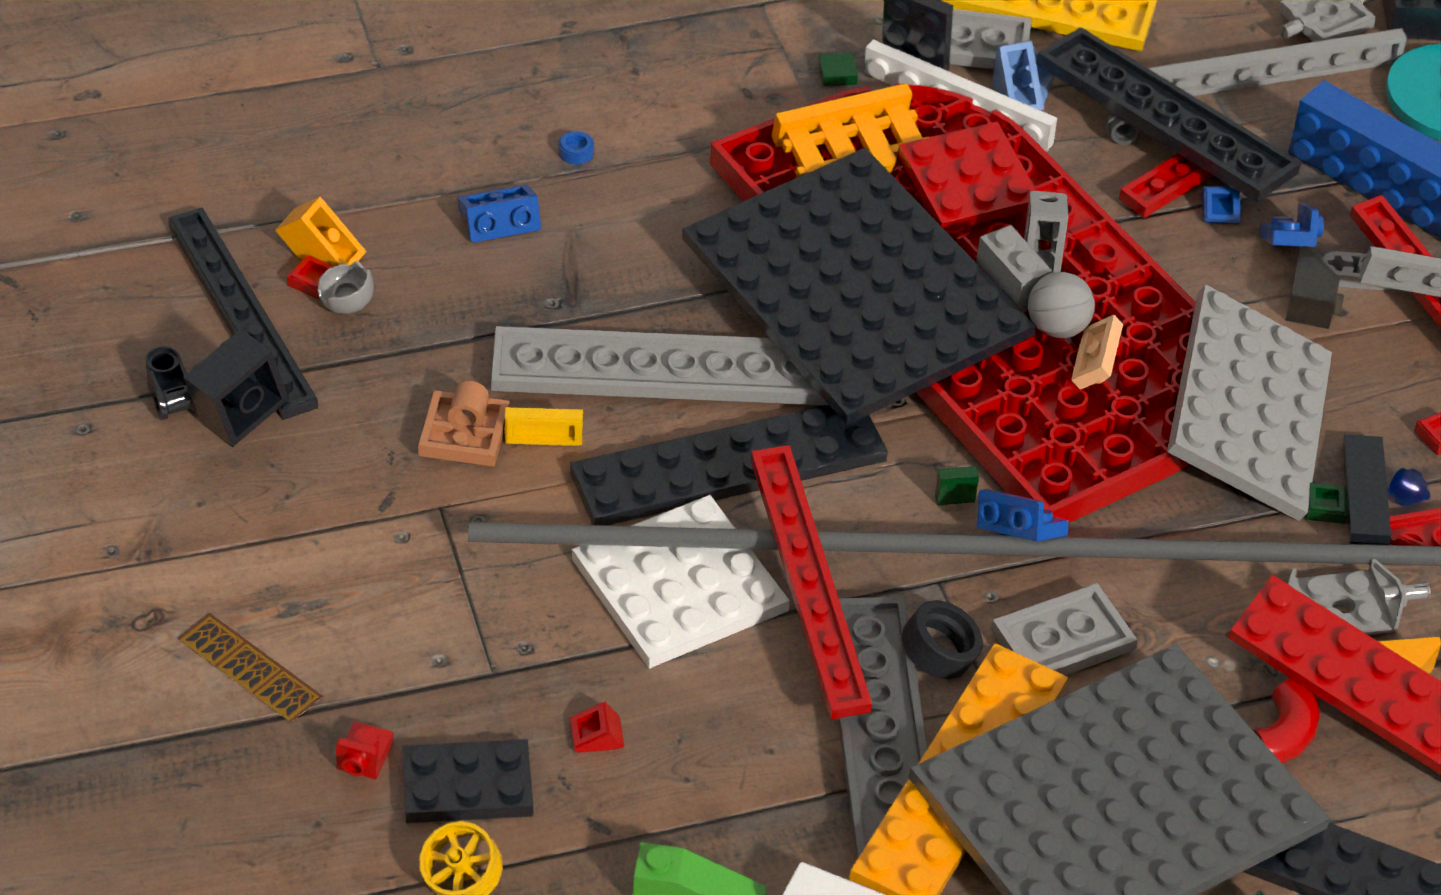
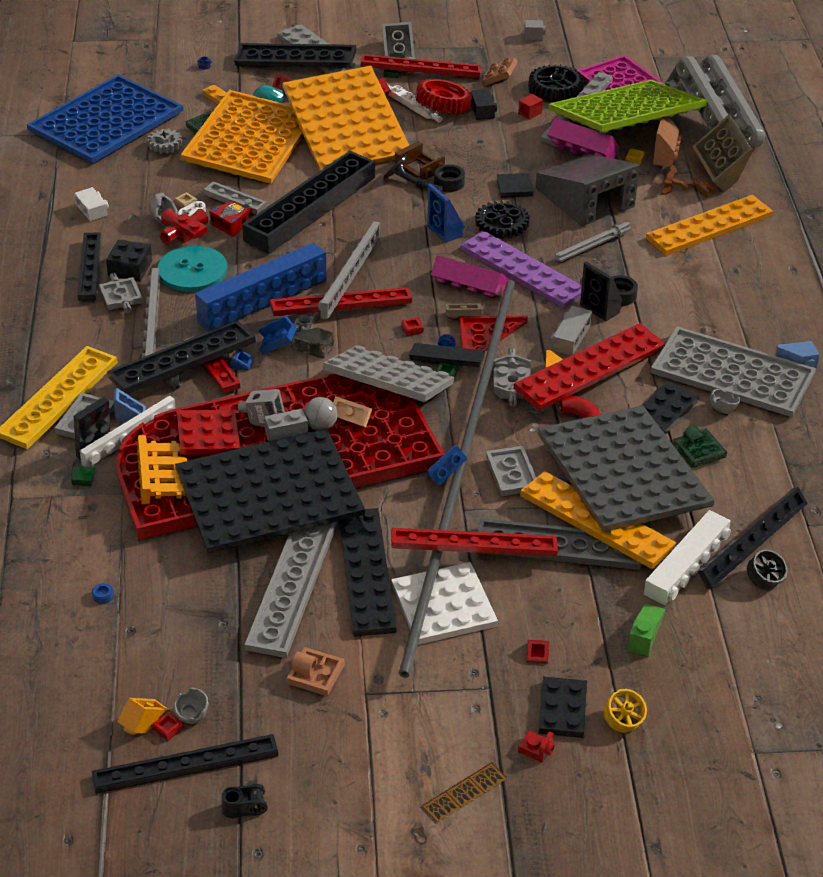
camera: 75 degrees left, 5 degrees down
(236, 387) = (271, 759): black brick -> none
(500, 212) = (146, 631): blue bracket -> none
(543, 426) = (327, 633): yellow tile -> none
(955, 625) = (512, 509): black tyre -> none
(956, 485) = (409, 487): dark green tile -> none

